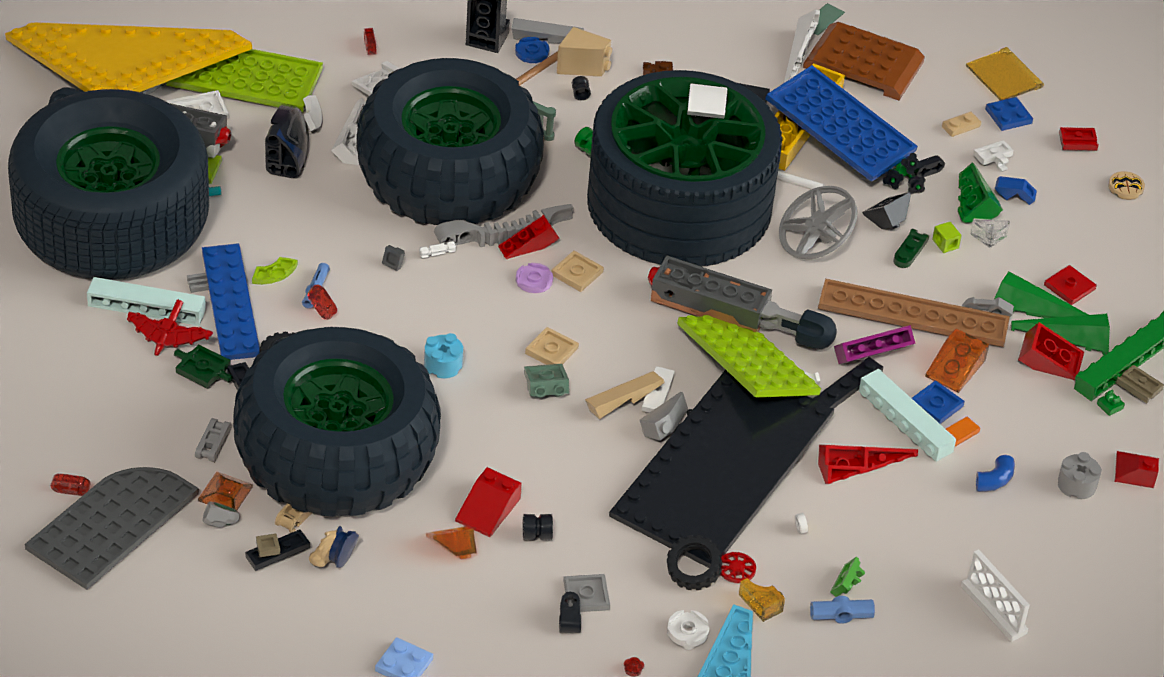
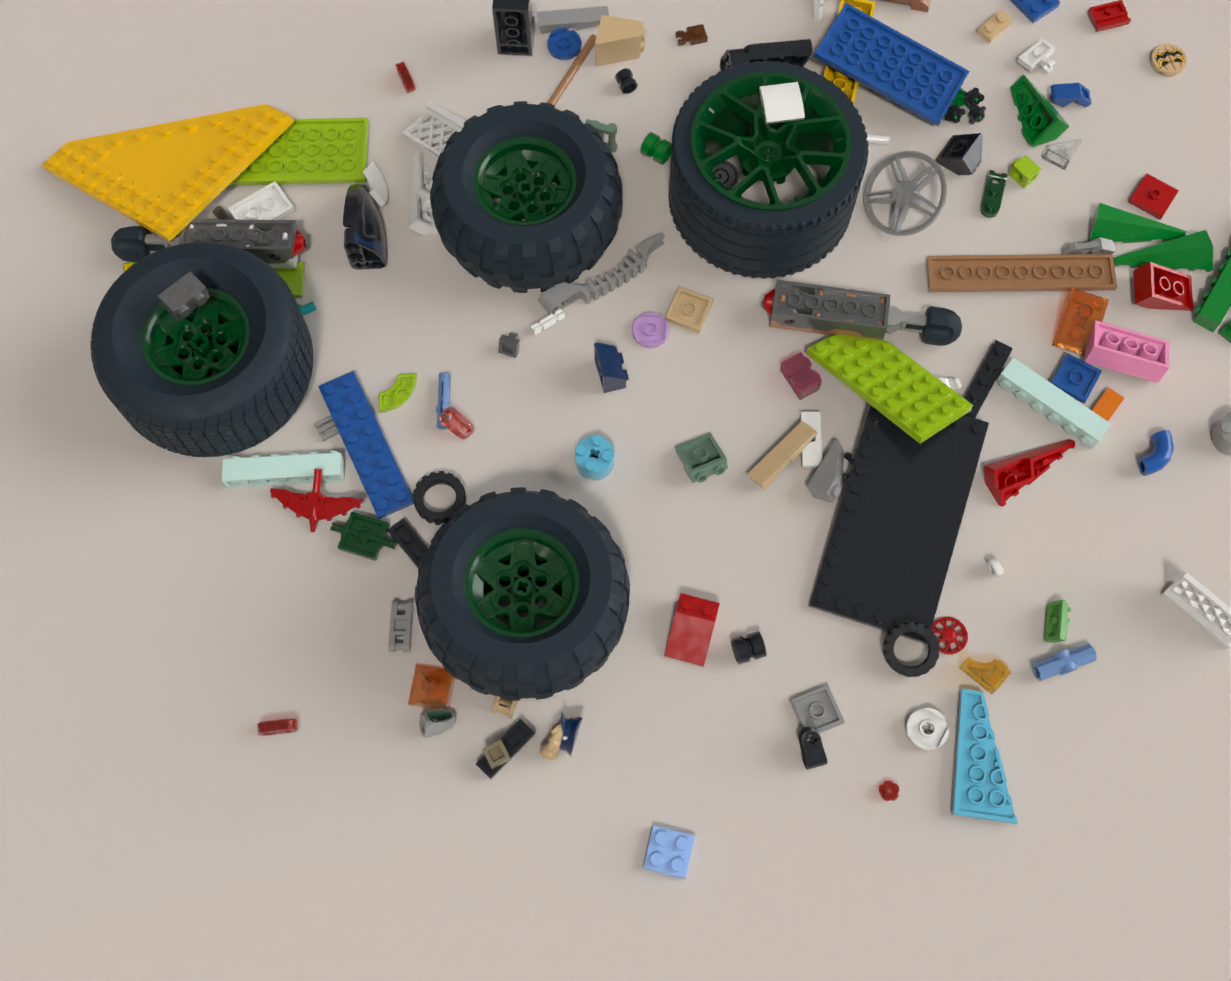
camera: 10 degrees left, 25 degrees up
(110, 119) = (184, 296): none -> flat silver brick
(110, 522) = (331, 763): dark grey plate -> none
(456, 541) = (672, 687): clear orange slope -> none
(484, 292) = (609, 367): none -> dark blue slope
(530, 239) = (632, 285): red slope -> none
(551, 347) = (693, 413): tan tile -> none
(666, 341) = (800, 376): none -> clear pink brick
(874, 344) = (999, 327): magenta brick -> none
(930, 166) = (986, 84): black beam -> none
(993, 390) = (1127, 351): none -> bright pink slope

